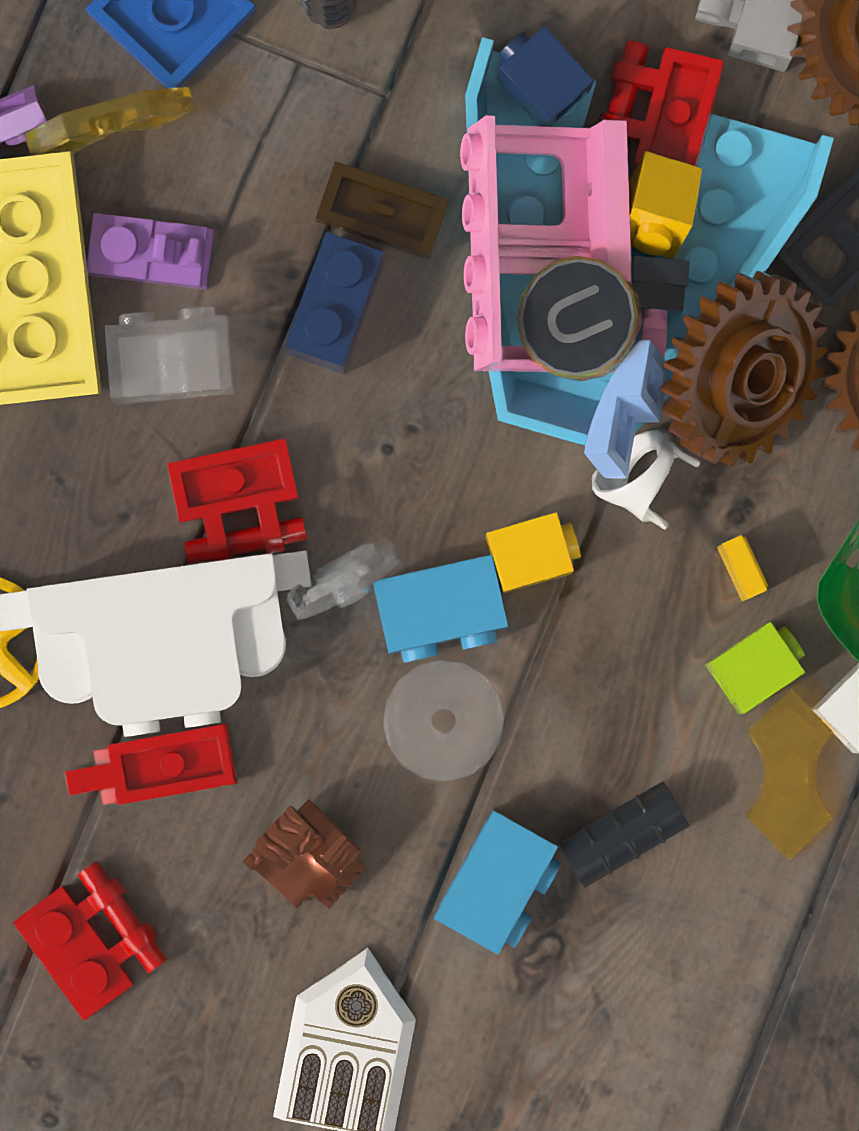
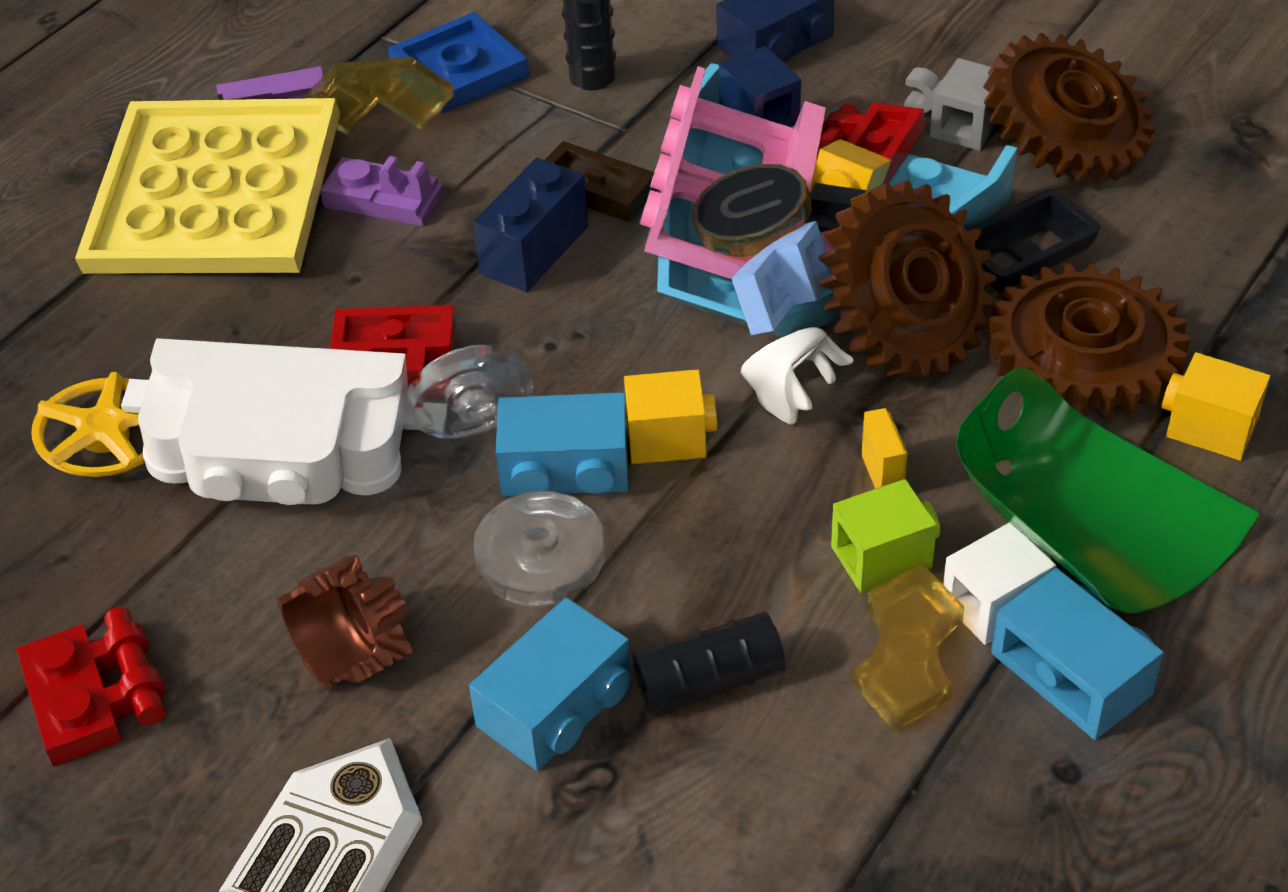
camera: 15 degrees right, 40 degrees down
(158, 766) = (226, 537): red hinge -> none
(170, 357) = (368, 247): clear brick -> none

